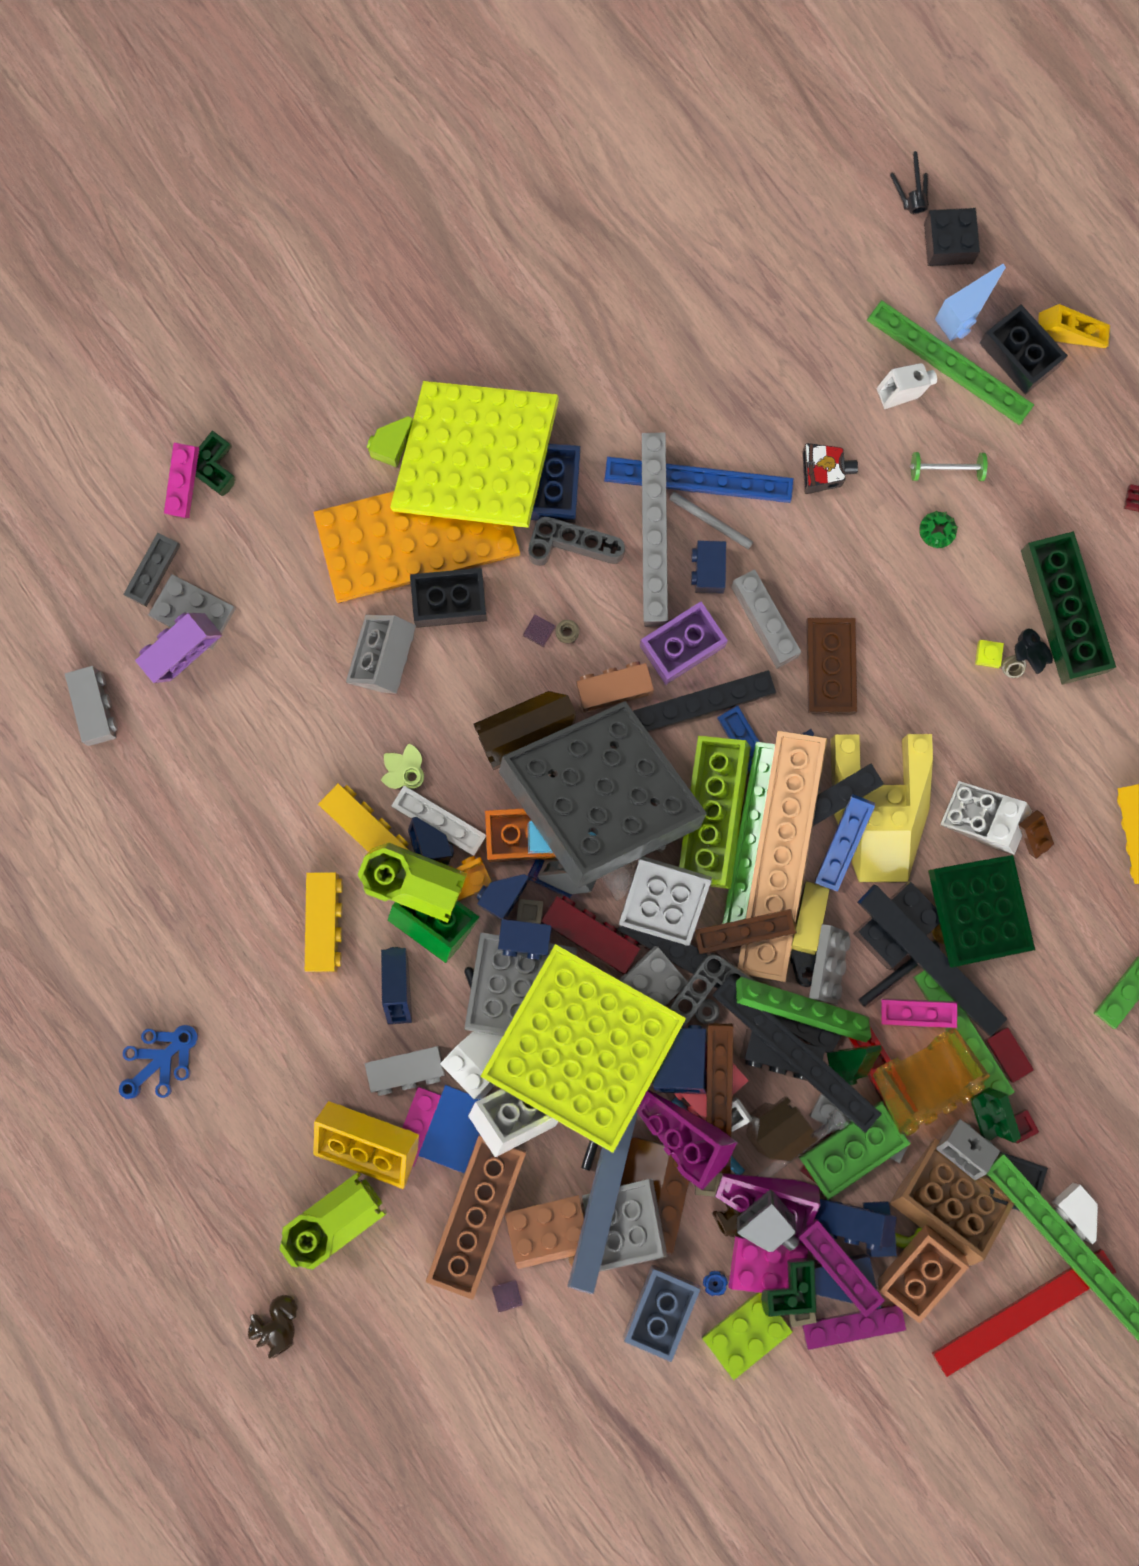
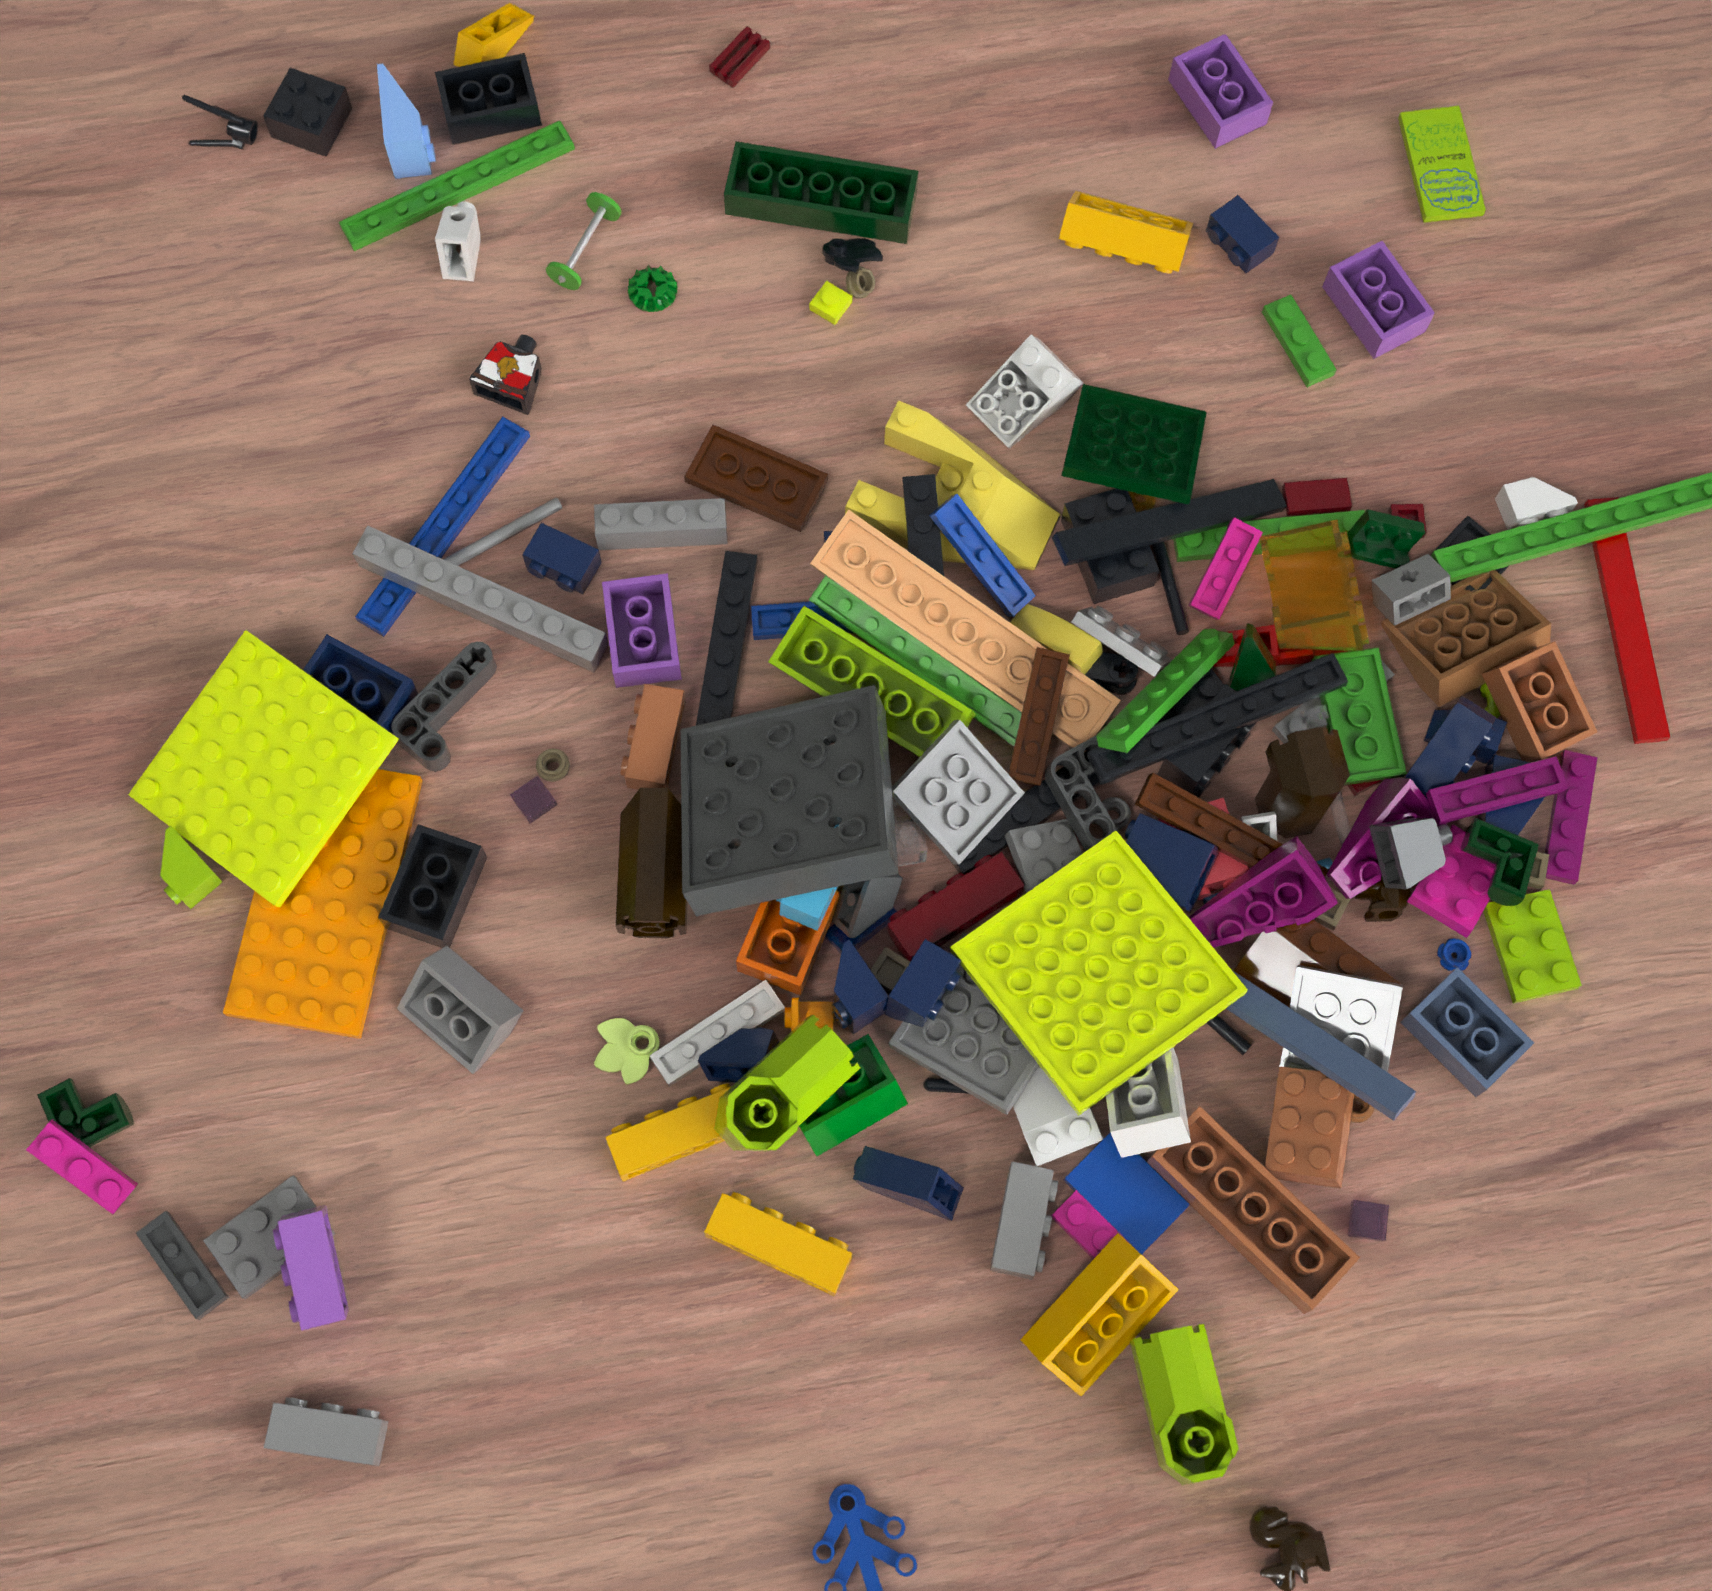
camera: 65 degrees left, 10 degrees down
(1036, 834) = (1072, 345): reddish brown plate -> none

